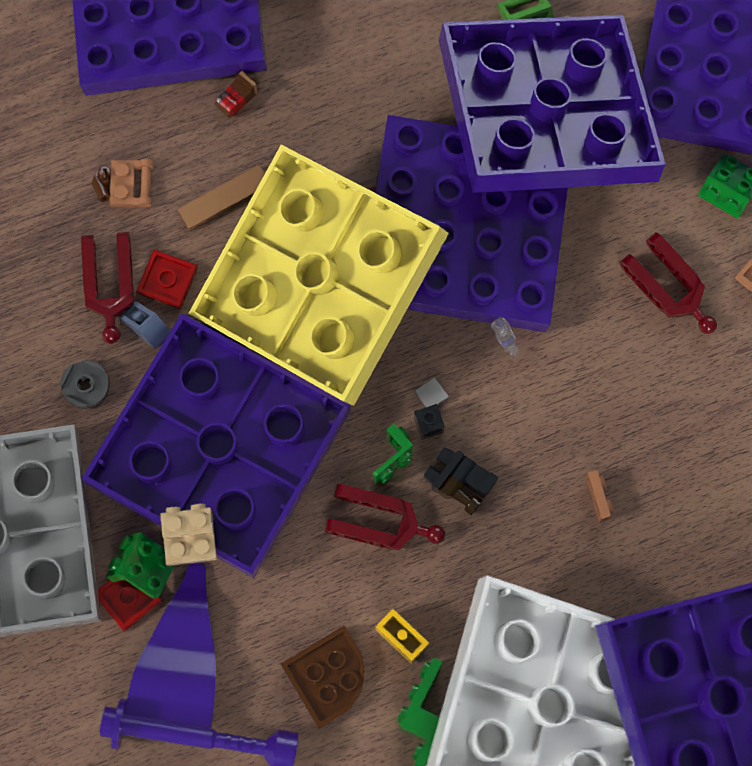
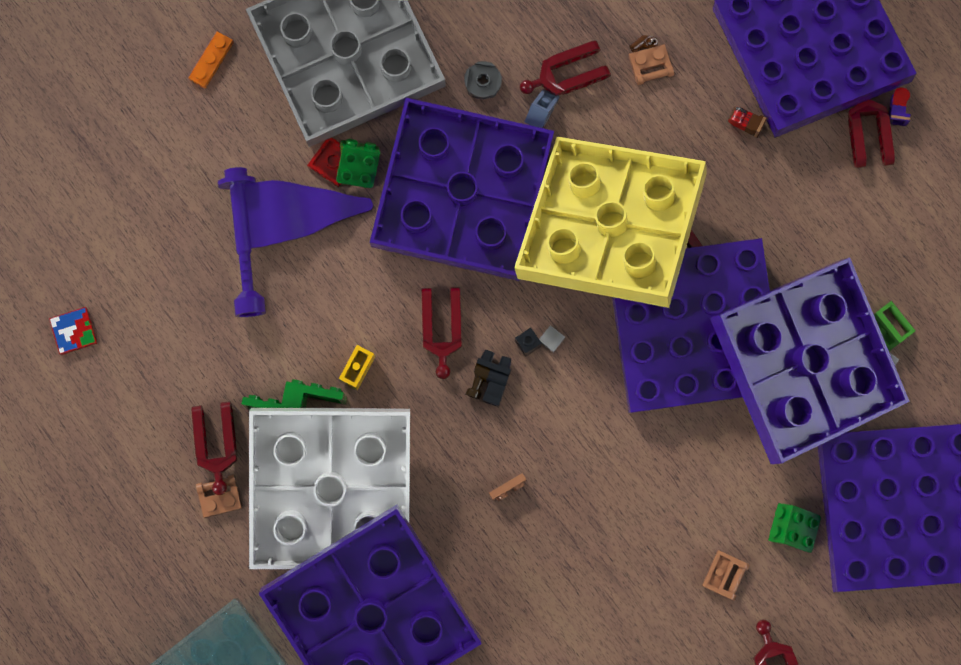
camera: 75 degrees right, 5 degrees up
(167, 279) = (583, 115): red tile -> none
(188, 535) = (384, 187): tan plate -> none
(221, 198) = (658, 134): medium nougat tile -> none
(327, 676) = (314, 322): reddish brown plate -> none
(400, 441) = (504, 325): green bracket -> none
(505, 336) = (612, 380): clear bar -> none
(684, 274) = (683, 518): dark red piece -> none

